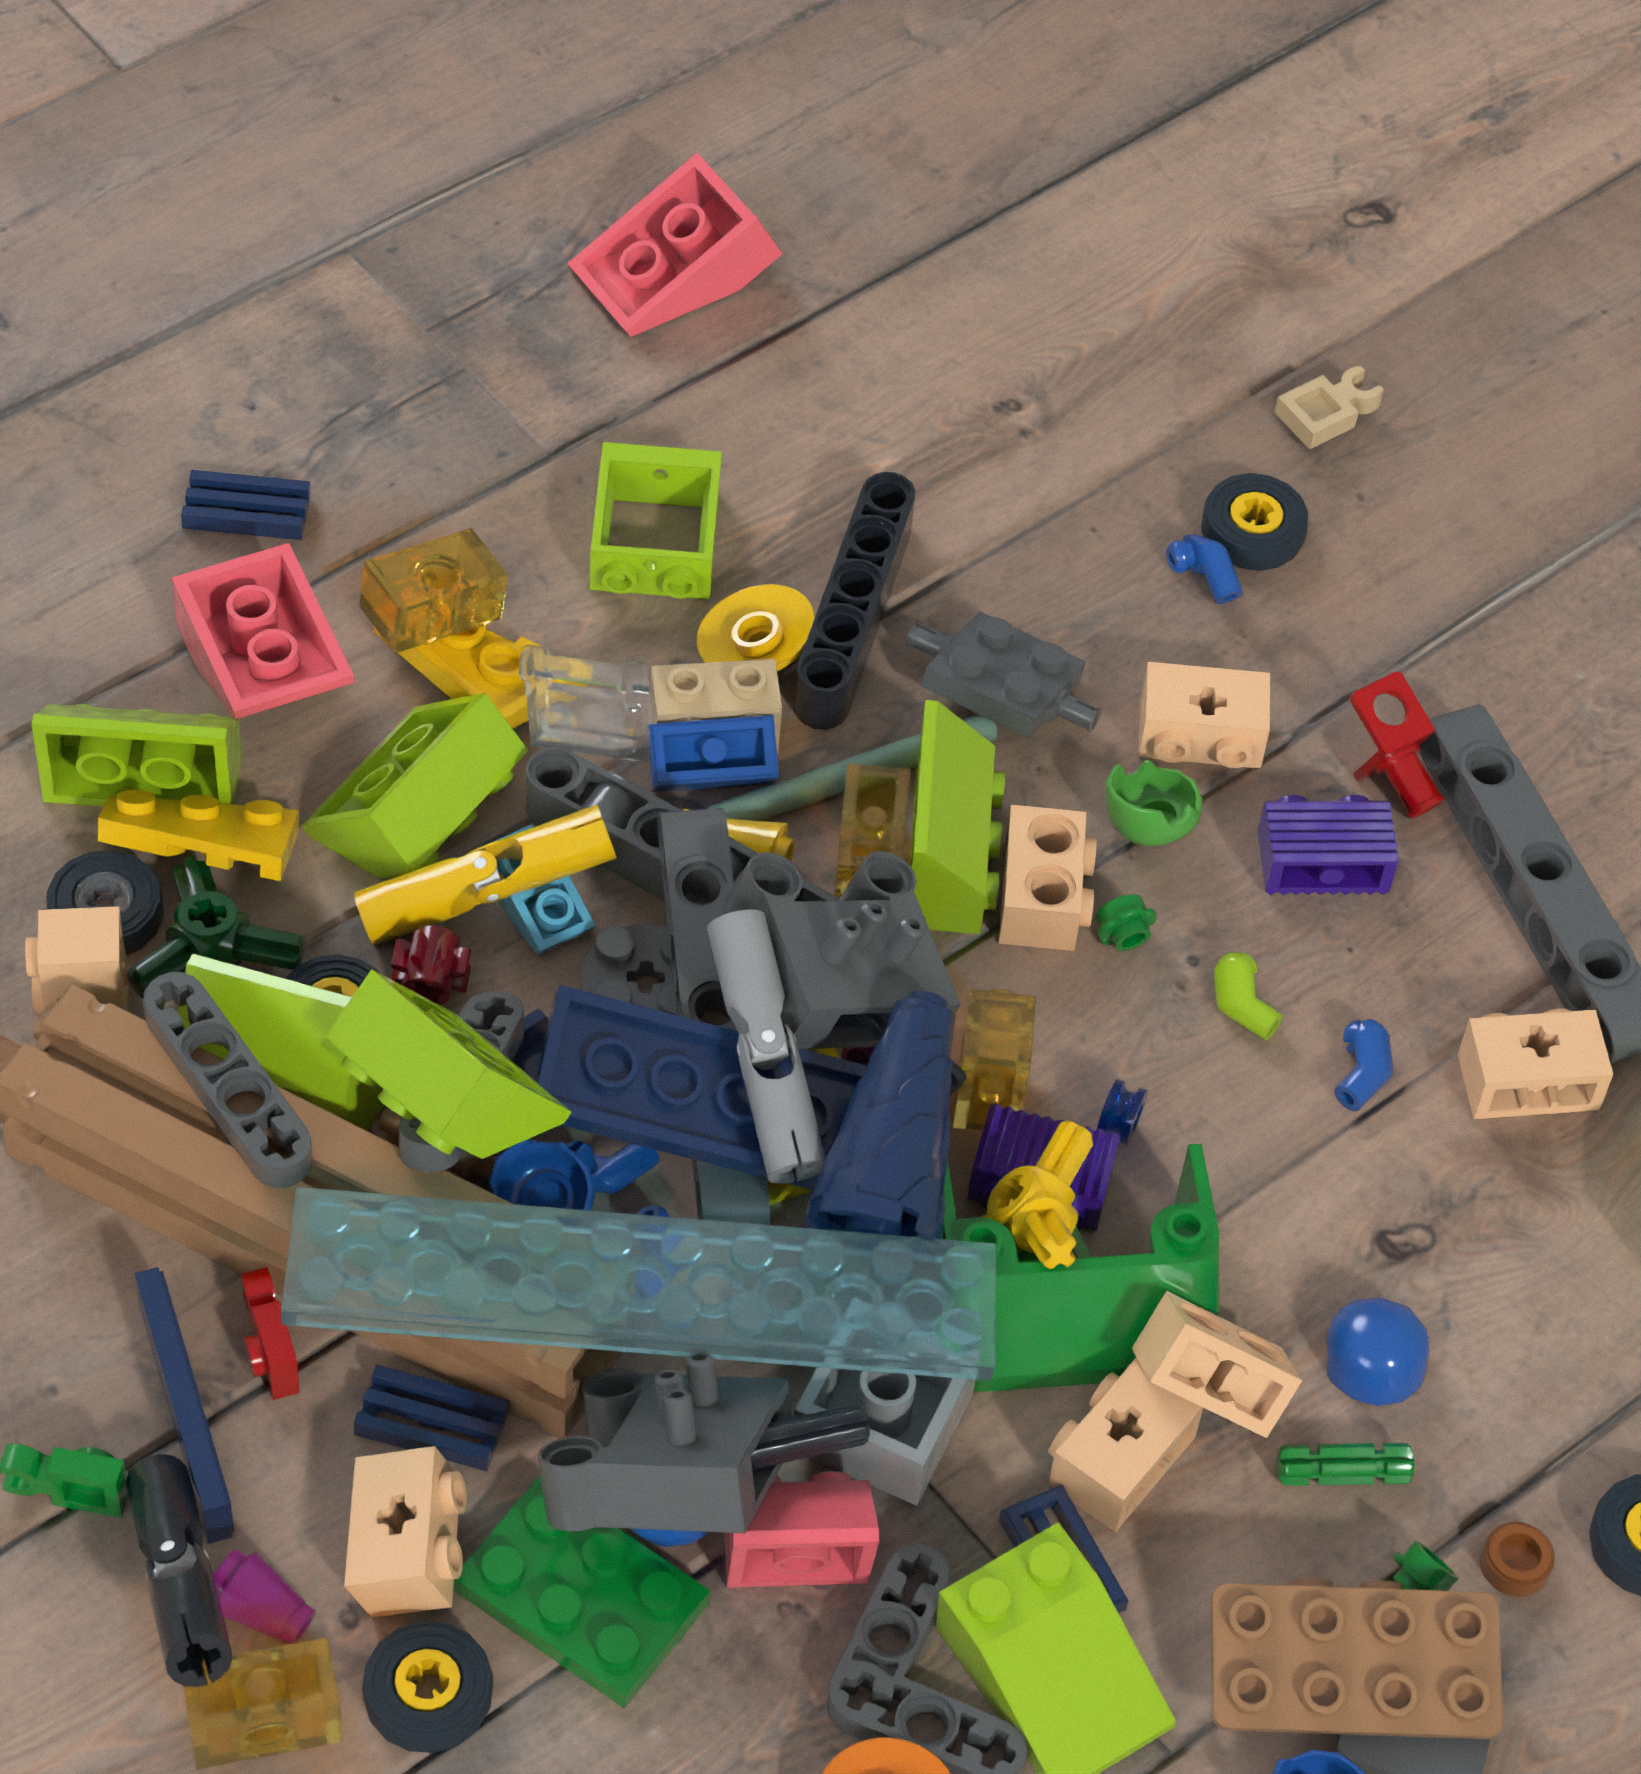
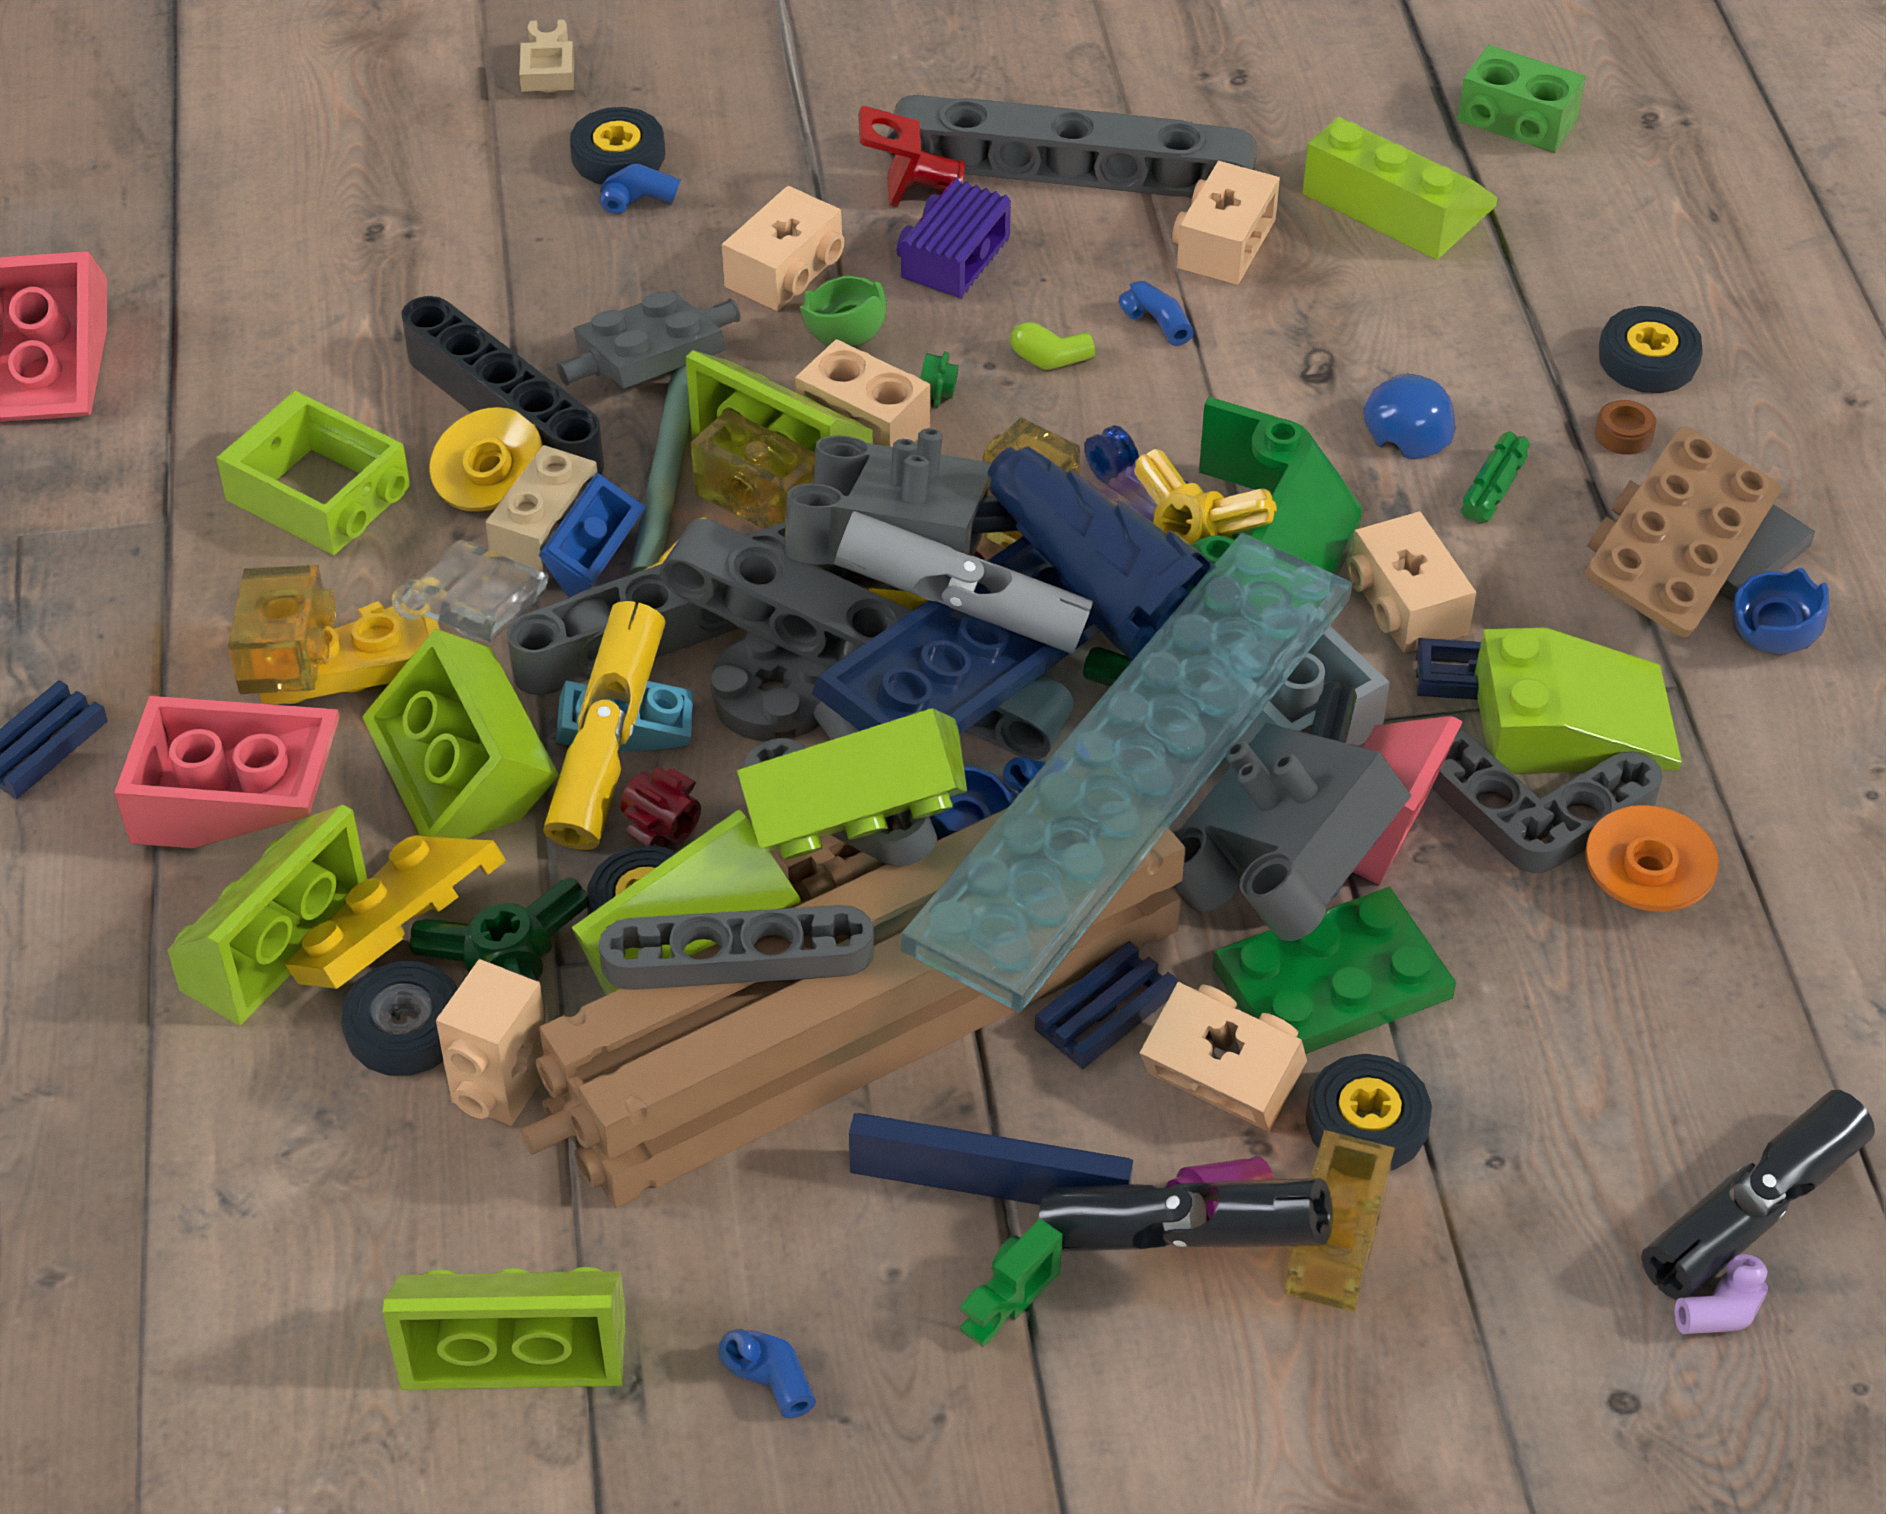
camera: 55 degrees left, 5 degrees down
(270, 1348) = (965, 1073): red plate -> none
(1216, 1364) = (1392, 486): light nougat brick -> none
(1423, 1570) = (1616, 471): green plate -> none

